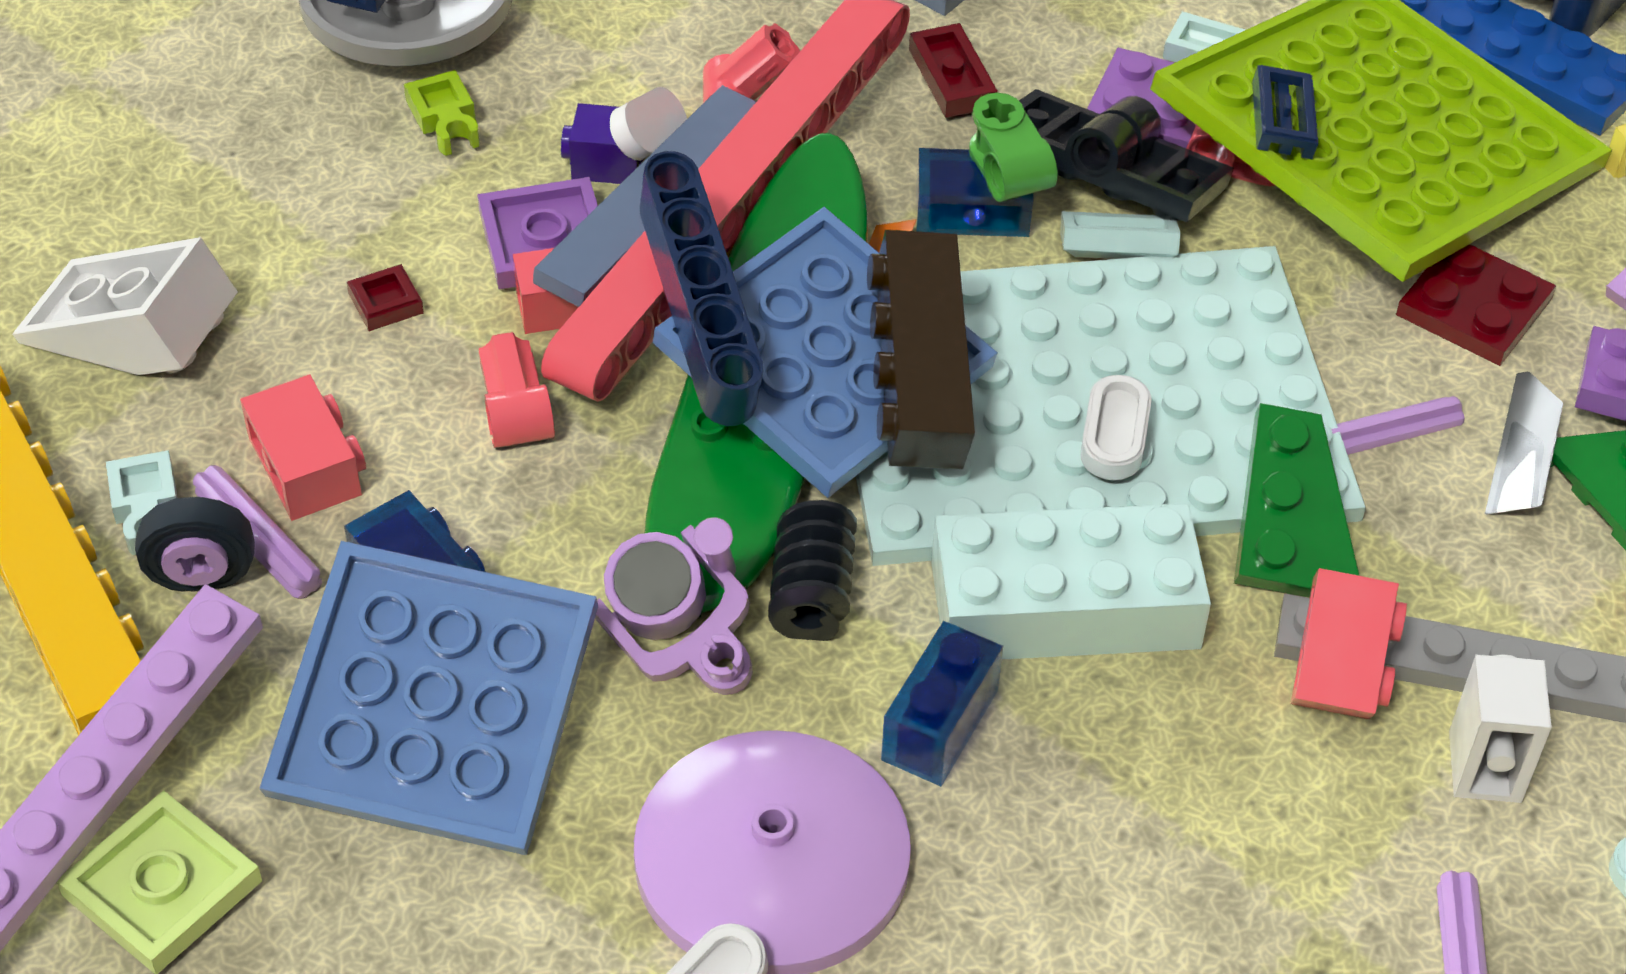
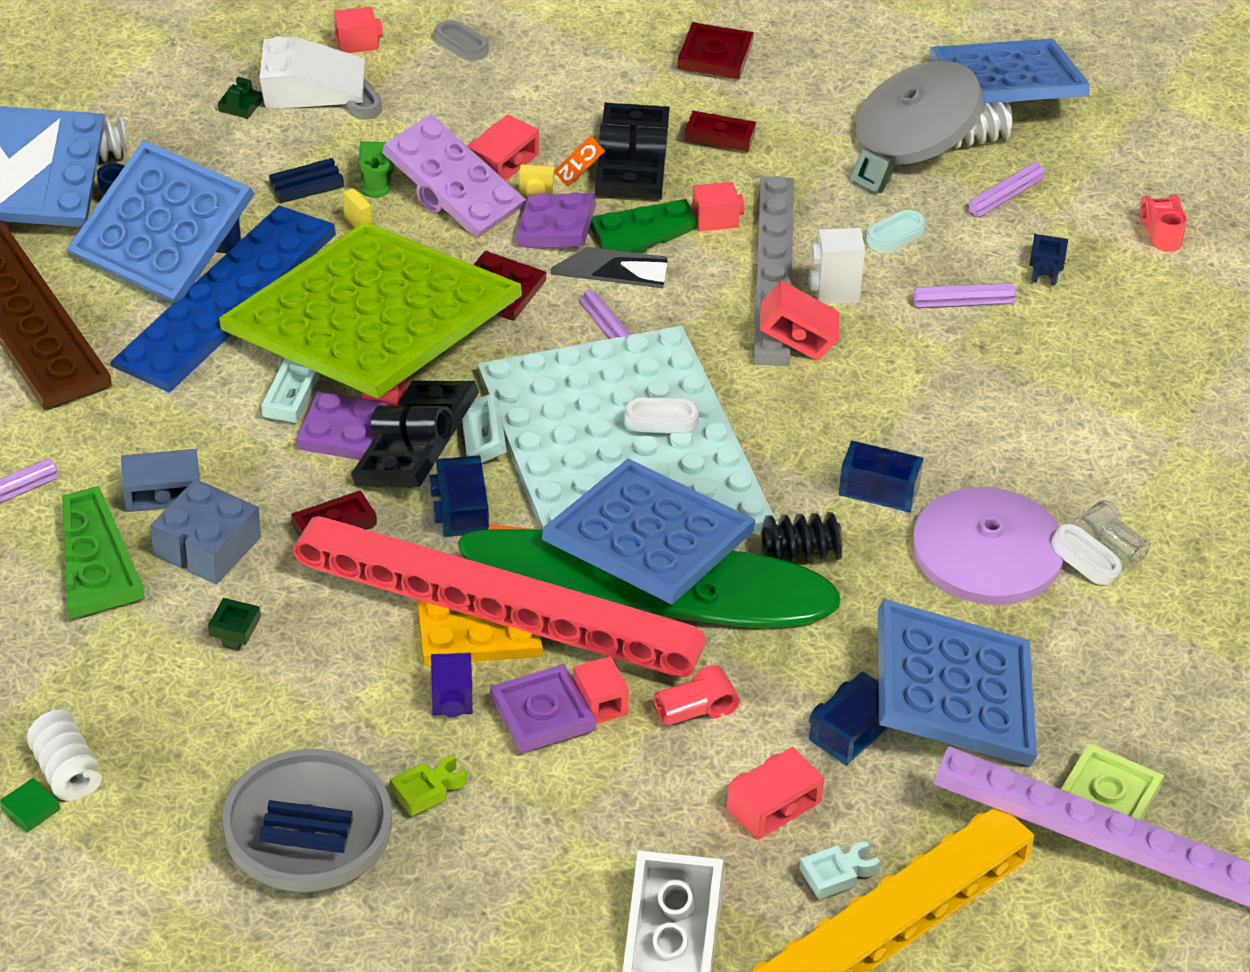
camera: 100 degrees left, 5 degrees down
(194, 544) = (883, 815): black wheel -> none
(272, 545) = (841, 810): lavender axle -> none
(385, 297) = (617, 788): dark red tile -> none
(615, 224) = (519, 634): sand blue tile -> none
(646, 122) = (452, 644): white tile -> none
(661, 592) = (846, 588): lavender piece -> none
(700, 289) = (649, 561): dark blue beam -> none
(752, 65) = (378, 621): coral piece -> none
(922, 350) = (655, 472): dark brown brick -> none
(1010, 149) = (458, 453): bright green piece -> none
(1073, 579) = (781, 433): light aqua brick -> none
(1283, 134) = (400, 330): dark blue tile -> none
(1291, 505) = (705, 346): green wing -> none

